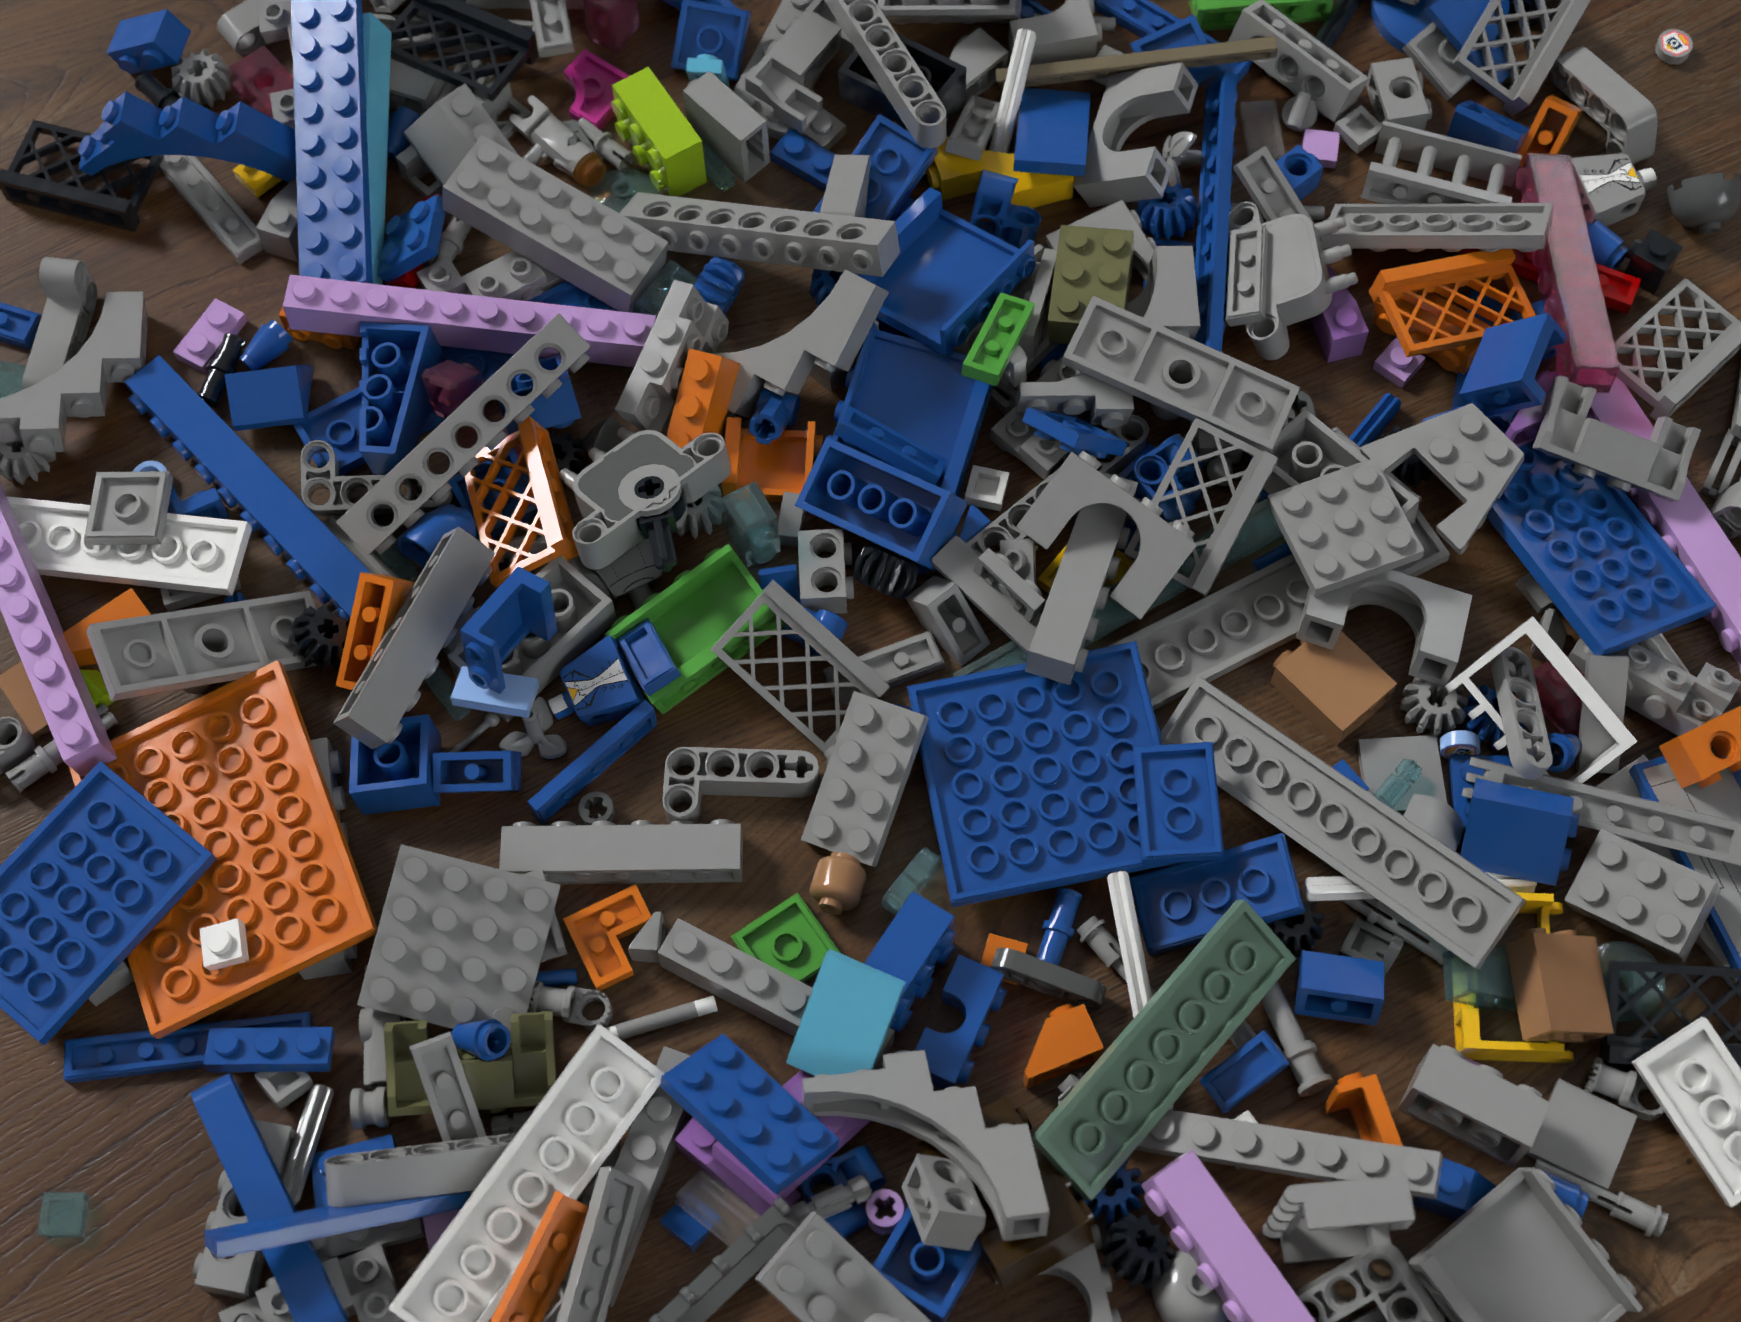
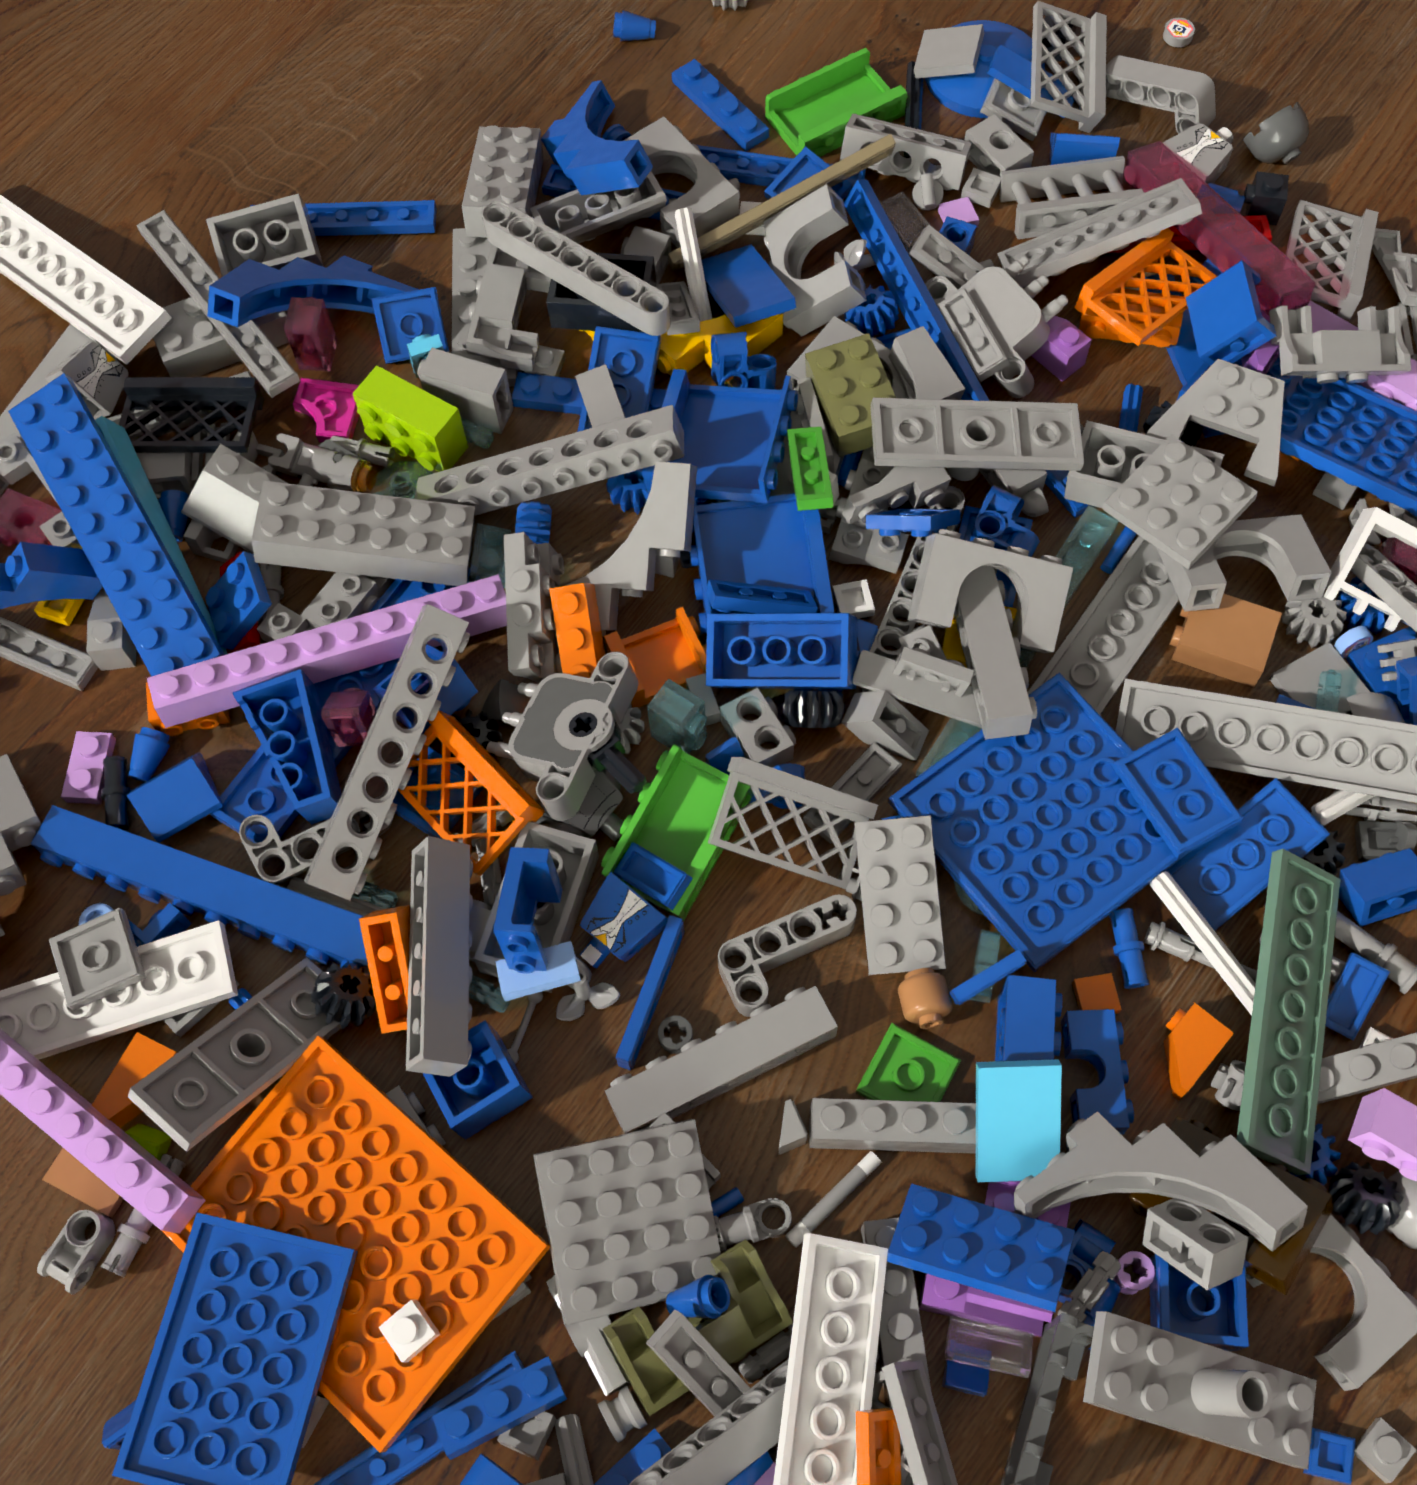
camera: 25 degrees left, 0 degrees up
(430, 529) = (396, 853): blue piece -> none
(477, 772) = (553, 1051): blue brick -> none
(597, 933) = (738, 1143): orange plate -> none
(773, 415) = (641, 617): blue piece -> none
(897, 887) = (988, 977): none -> blue tile
(1049, 978) = (1150, 994): dark grey beam -> none
(1235, 512) = (1082, 529): light grey fence -> none
(1396, 366) = (1119, 358): lavender plate -> none
(1550, 128) = (1131, 125): orange slope -> none

